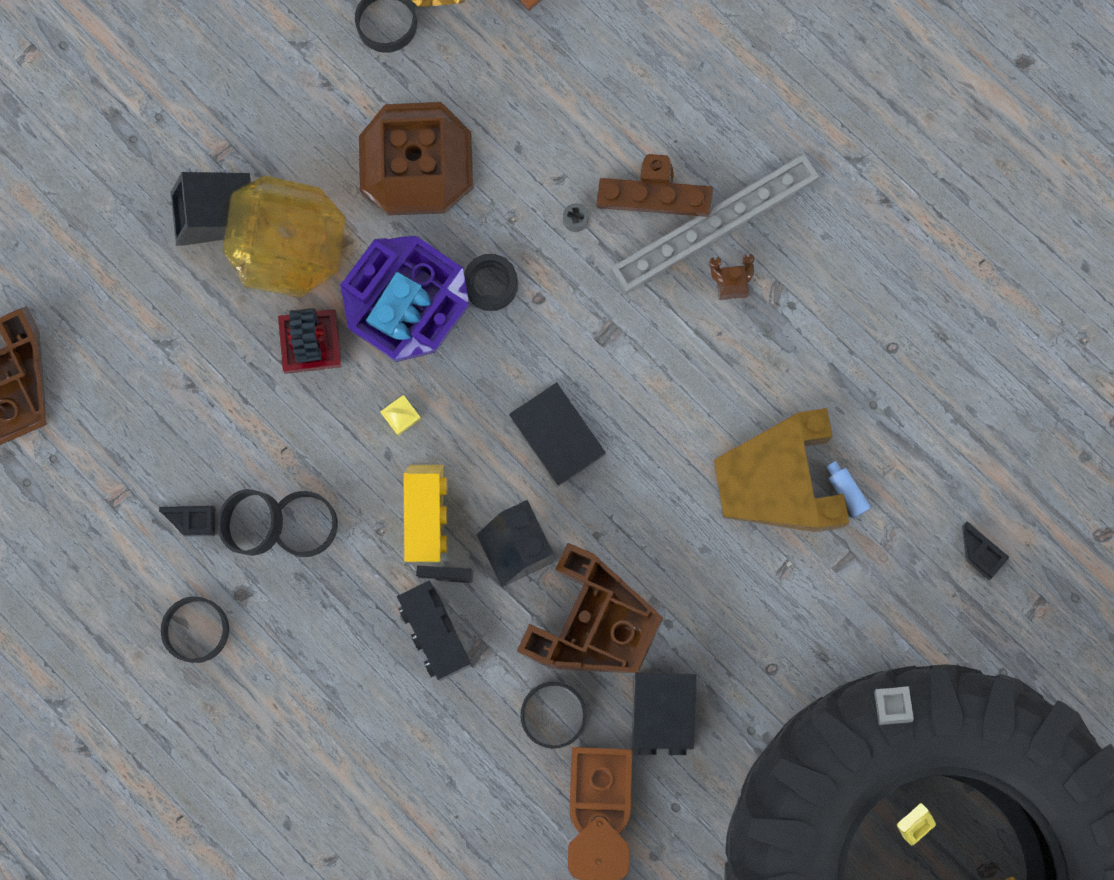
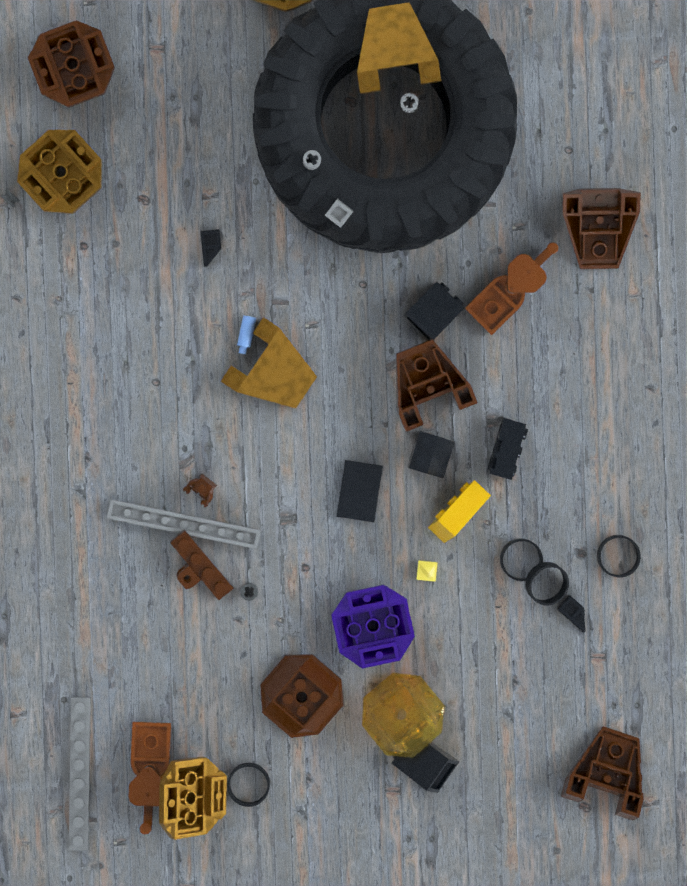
camera: 140 degrees left, 10 degrees up
(309, 340) = (437, 649): plate -> none
(396, 306) = (382, 624): dark azure plate -> none
(445, 574) = (476, 472): black tile -> none
(491, 260) = (322, 611): black tyre -> none
(540, 687) = (505, 355): black tyre -> none
(916, 824) = (378, 153): light yellow tile -> none
(990, 749) = (310, 166): none -> light grey bush

